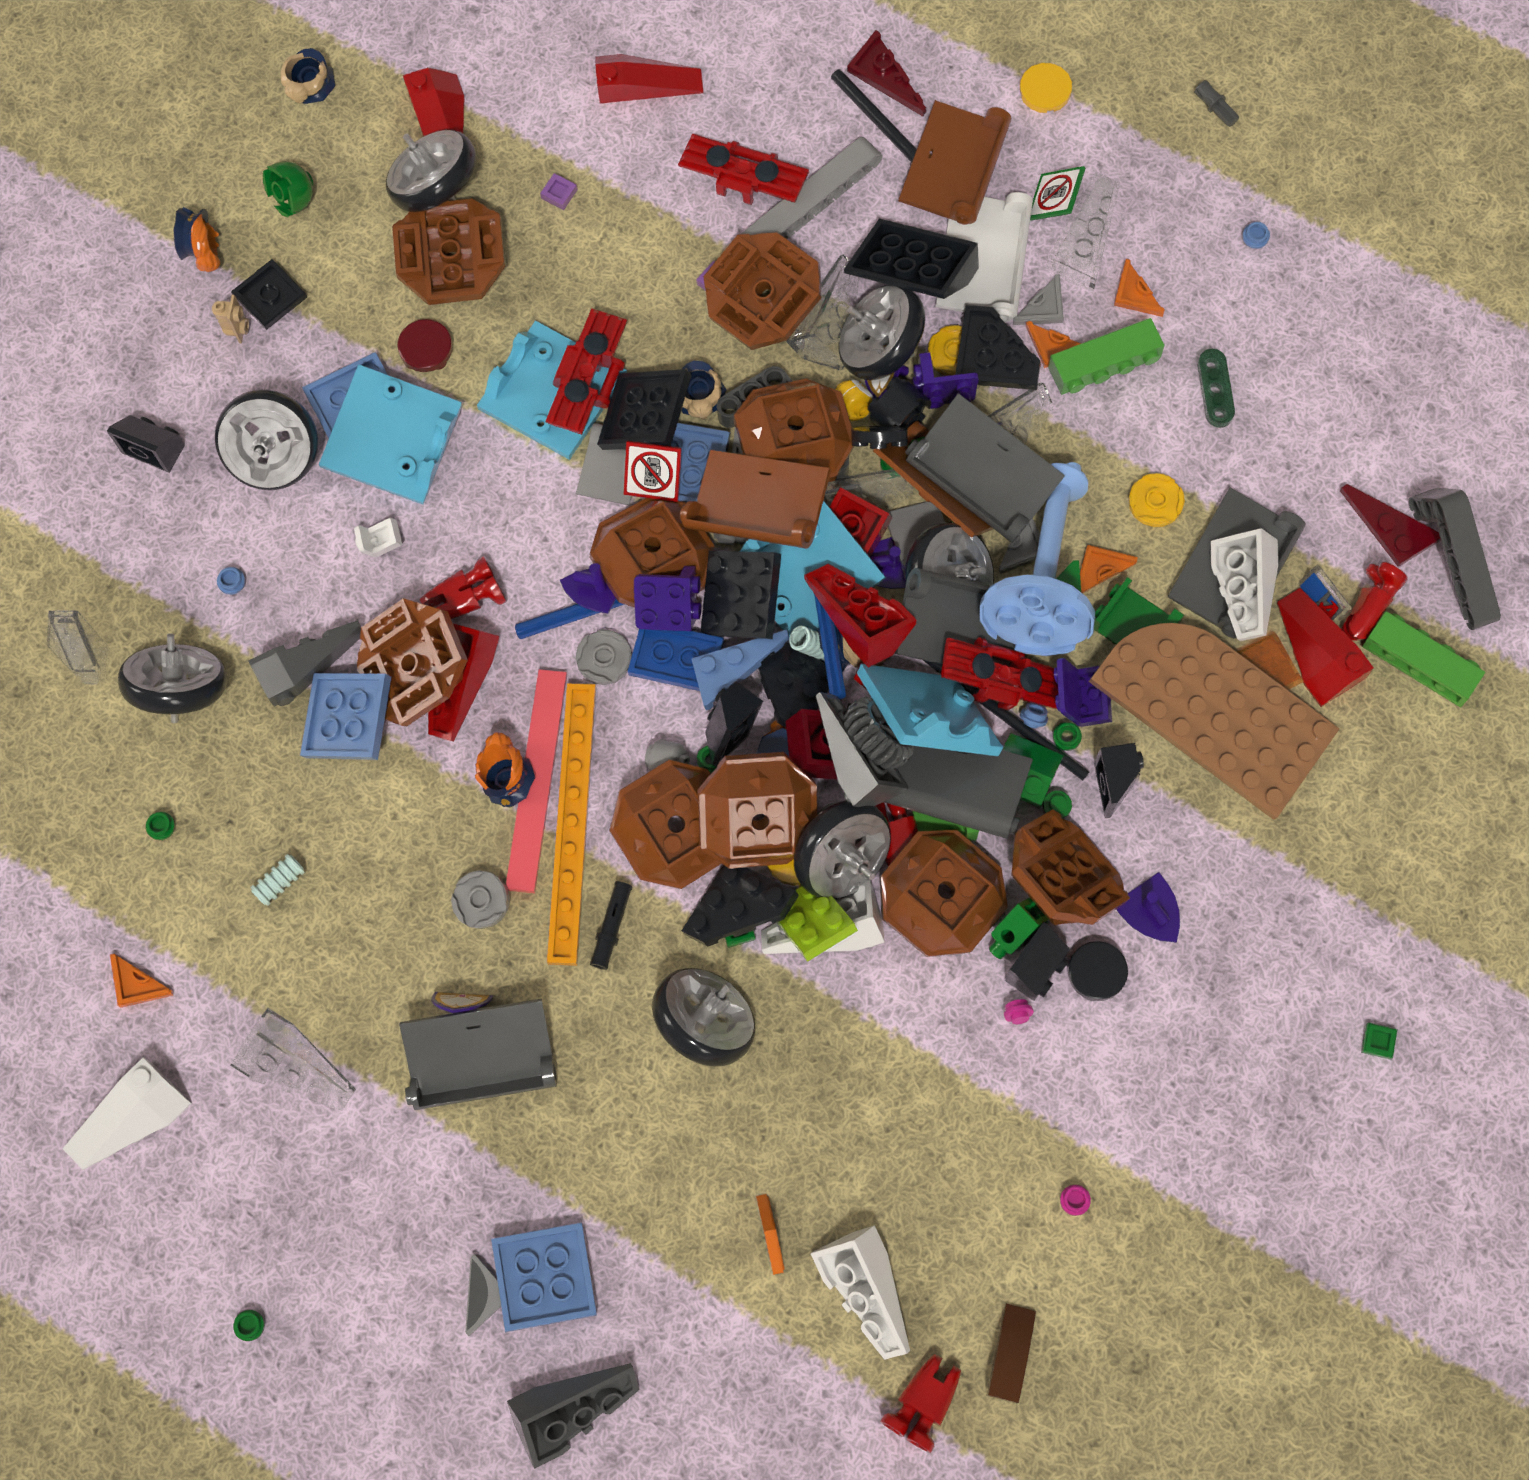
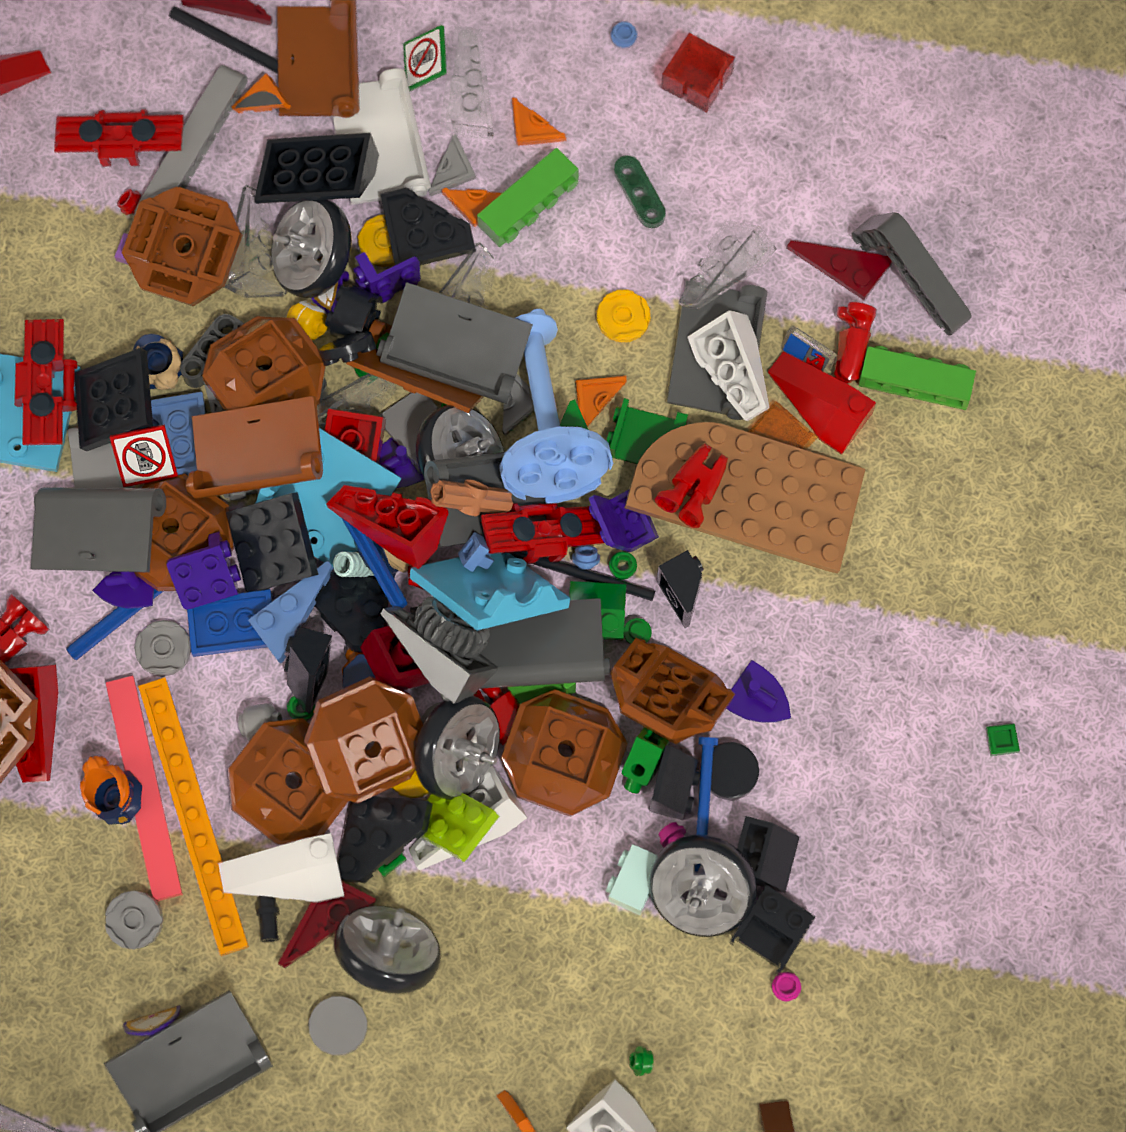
camera: 25 degrees left, 0 degrees up
(582, 515) = (95, 521): none -> dark grey door
(632, 1071) = (338, 1025): none -> light grey tile
(640, 908) = (289, 871): none -> white wedge
(662, 957) = (322, 921): none -> dark red wing
(728, 233) = (128, 201): none -> red plate
(888, 178) = (262, 97): none -> orange tile
(907, 1217) = (641, 1061): none -> green plate
(928, 672) = (475, 553): none -> medium blue tile
(943, 617) = (471, 497): none -> nougat piece
(966, 1040) = (631, 886): none -> light aqua brick
(1019, 1095) = (720, 868): none -> flat silver wheel
(1059, 995) = (705, 786): none -> blue bar
(1084, 1138) = (774, 928): none -> black piece
(1101, 1064) = (769, 852): none -> black slope
(1168, 682) = (696, 482): none -> red piece
(1285, 479) = (733, 256): none -> clear wedge
(1315, 293) = (697, 72): none -> clear red piece

